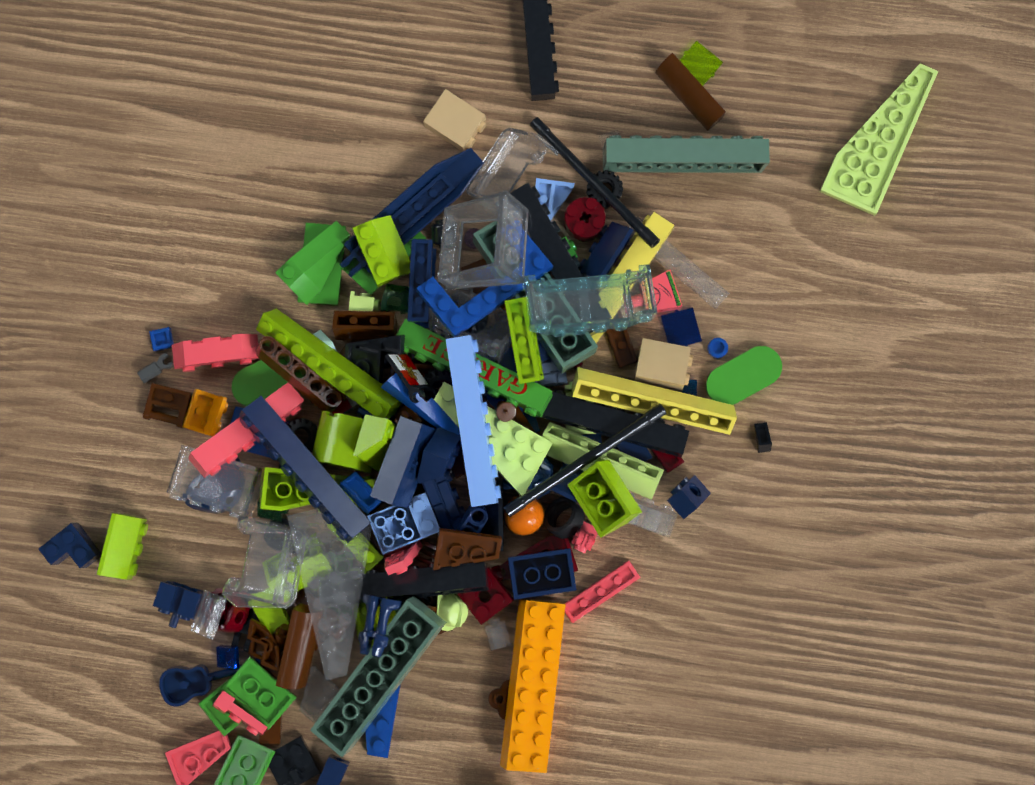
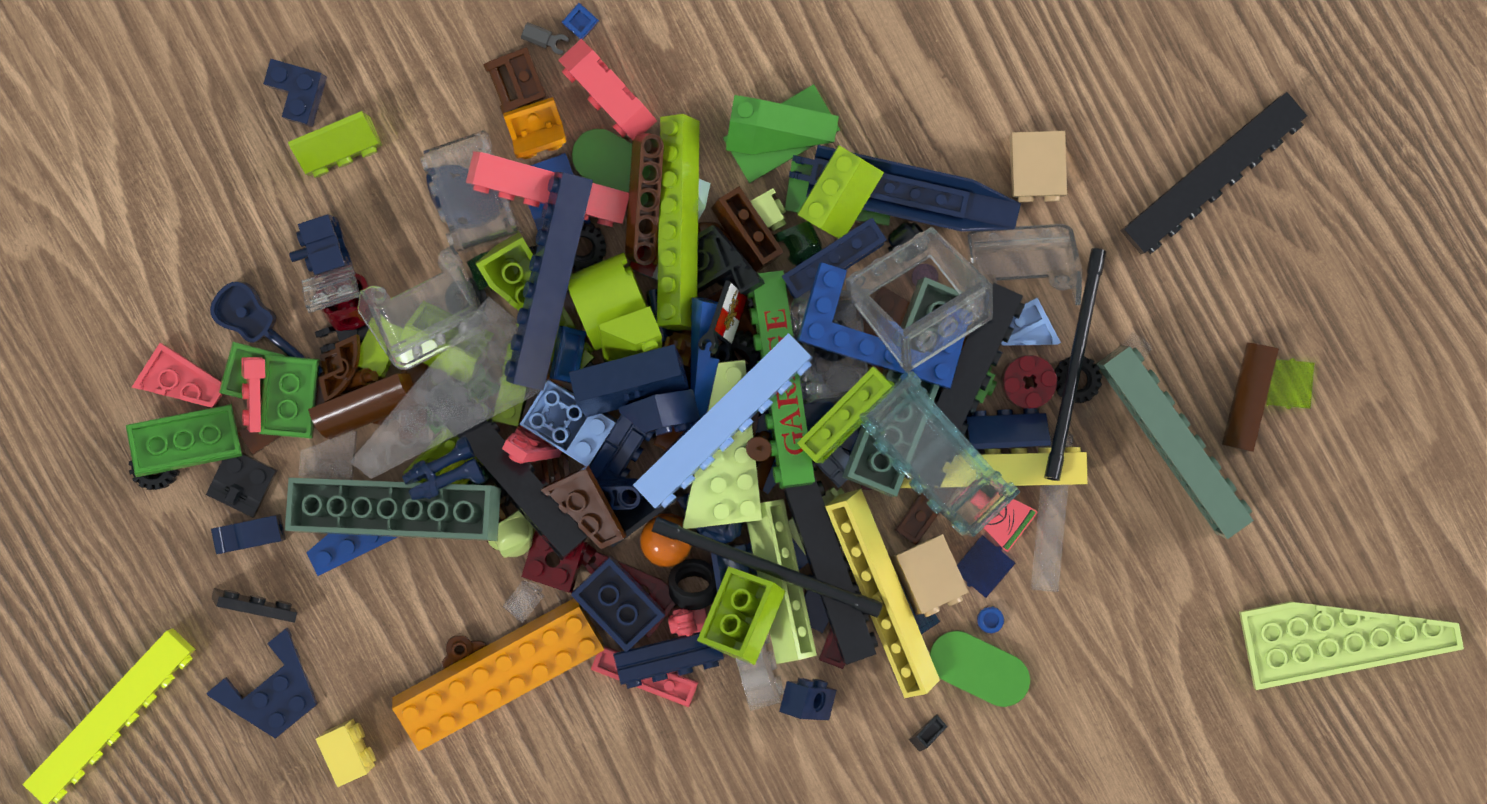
camera: 55 degrees right, 5 degrees up
(227, 656) = (301, 336): clear blue plate -> none
(598, 569) = (664, 658): none -> dark blue brick

